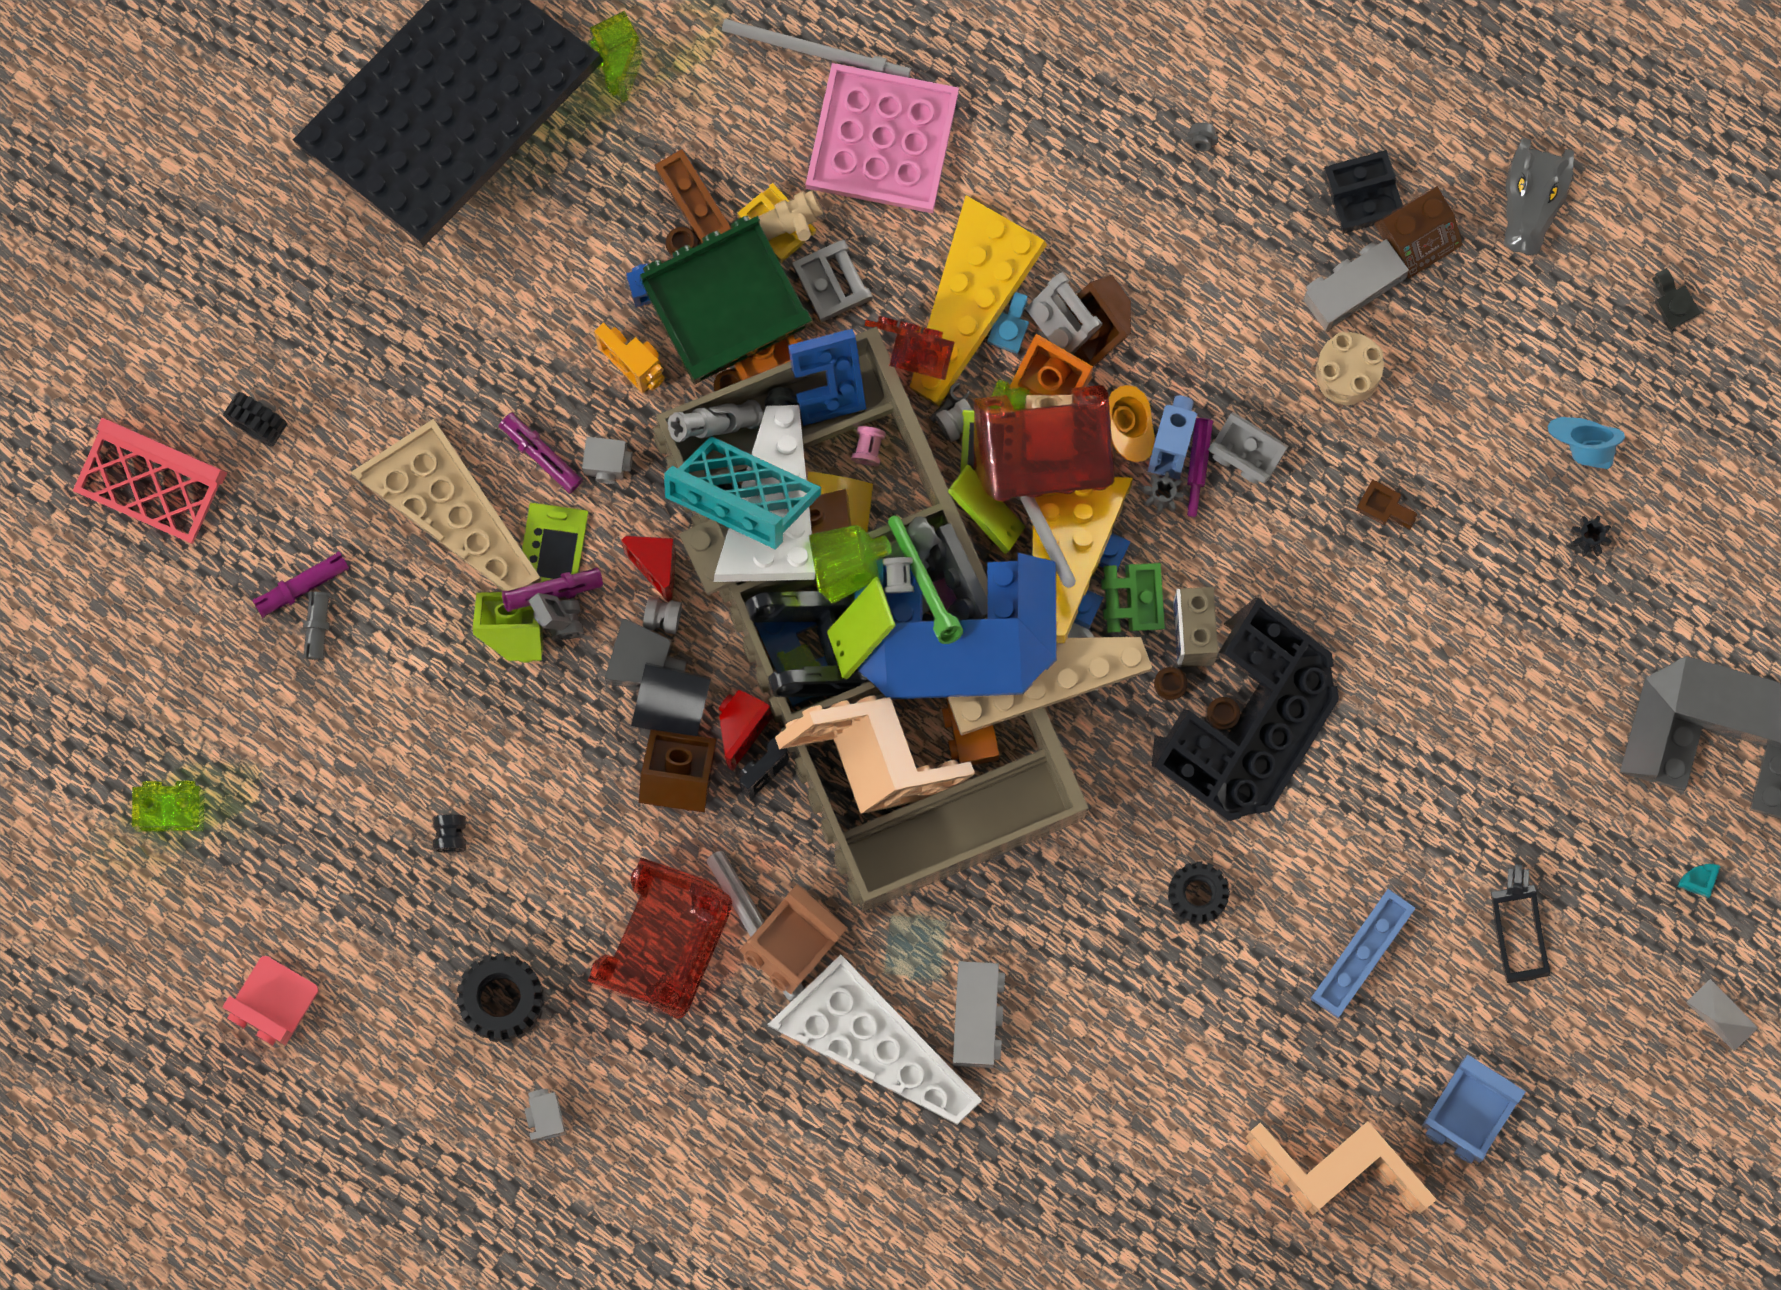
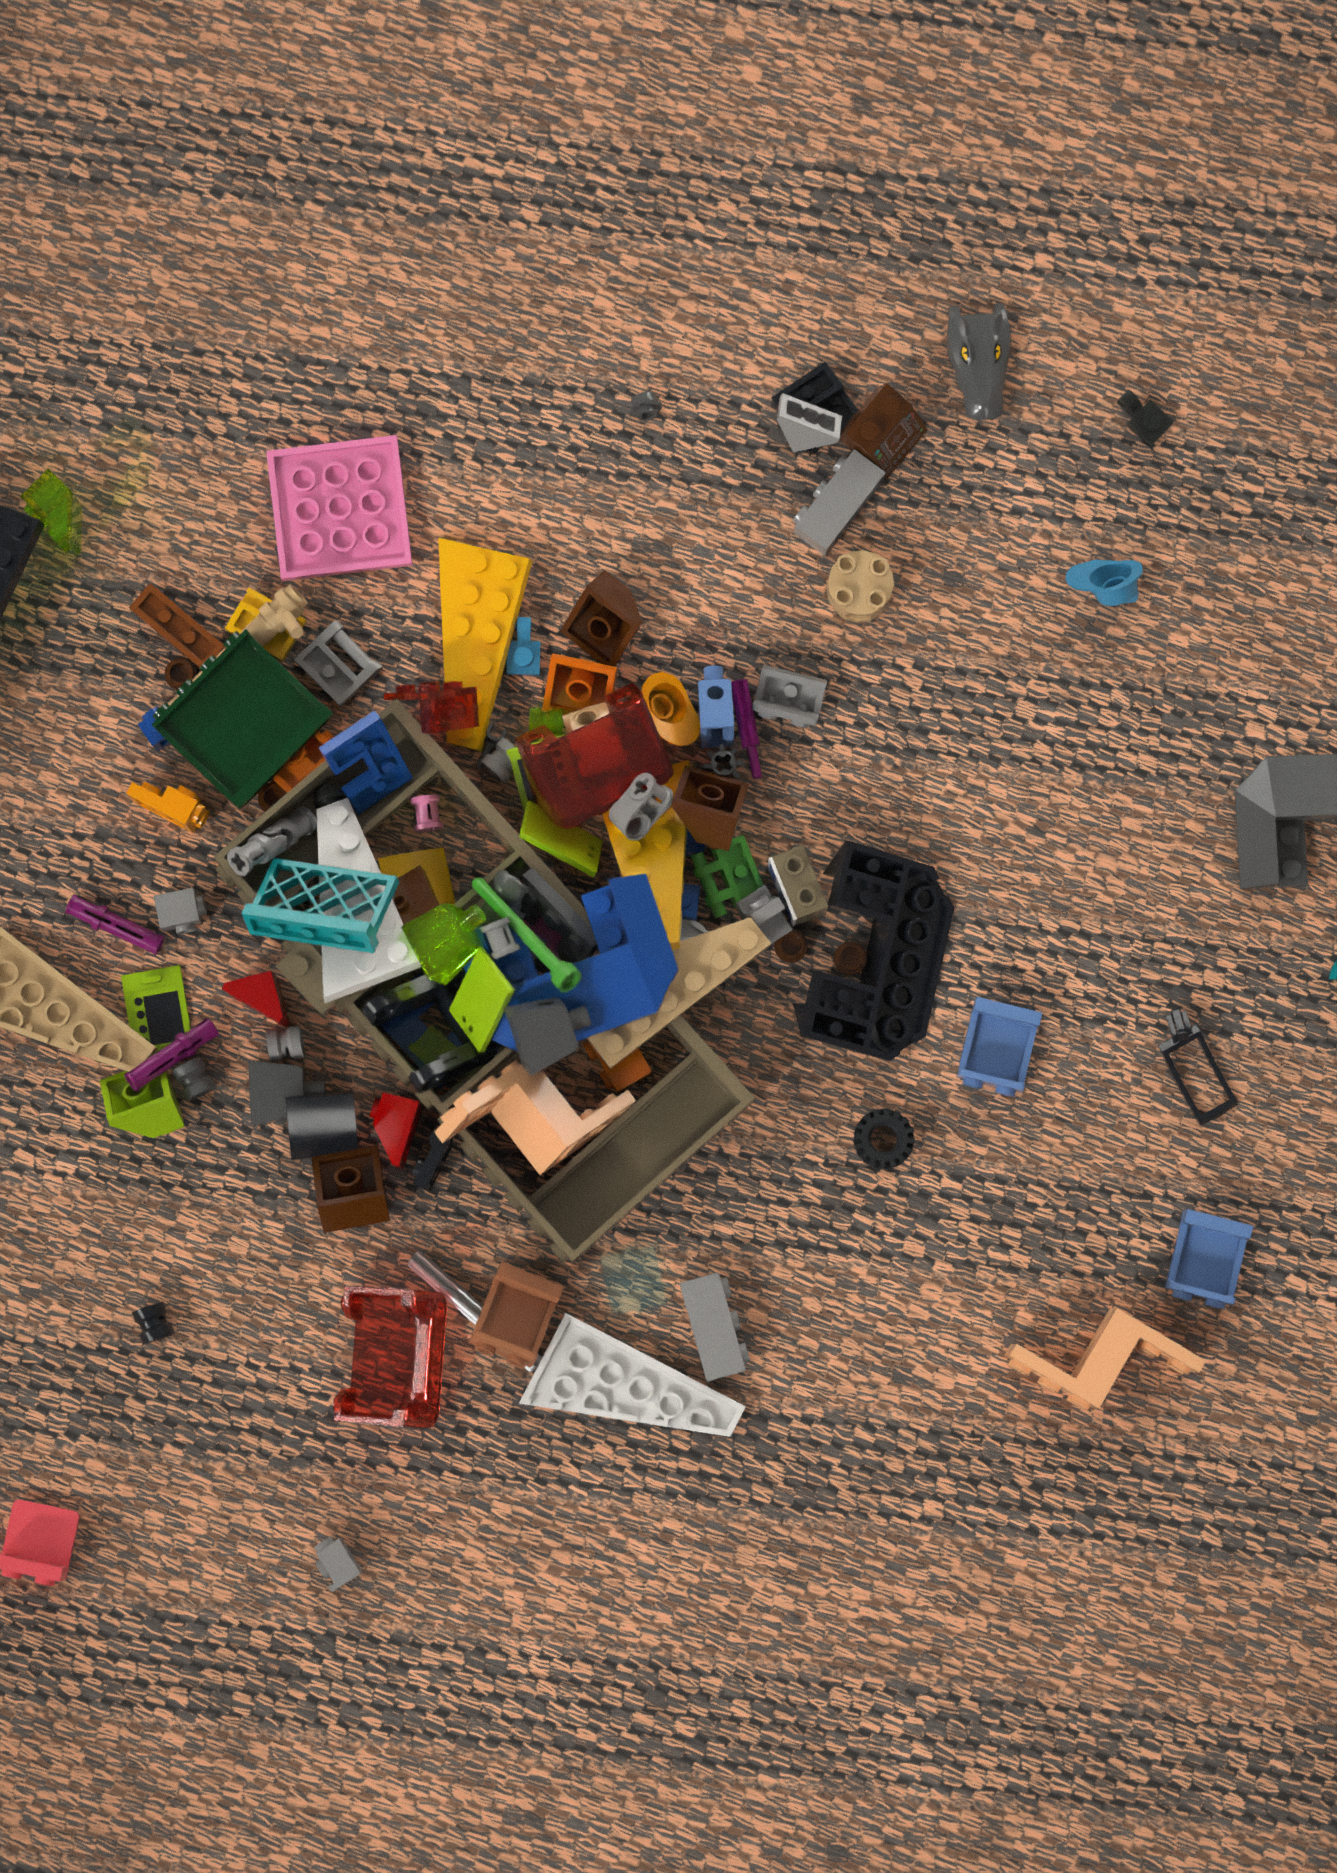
camera: 20 degrees left, 5 degrees up
(521, 1018) = (226, 1465): black tyre -> none
(549, 612) = (176, 1079): dark grey plate -> none
(876, 63) = (308, 438): light grey bar -> none
(910, 674) = (544, 1031): none -> dark grey torso
(1048, 540) = (632, 853): light grey piece -> none
(1057, 320) = (567, 631): light grey plate -> none
(1070, 502) = (638, 809): none -> light grey piece
(1137, 525) = (709, 806): none -> reddish brown slope
(1157, 642) = (765, 912): none -> light grey brick
(1337, 842) = (998, 1046): none -> medium blue panel
(1349, 202) = (807, 424): none -> light grey slope
(1362, 953) = (1057, 1144): medium blue plate -> none
(1382, 504) = (932, 707): reddish brown plate -> none
(1589, 544) = (1138, 663): black gear -> none

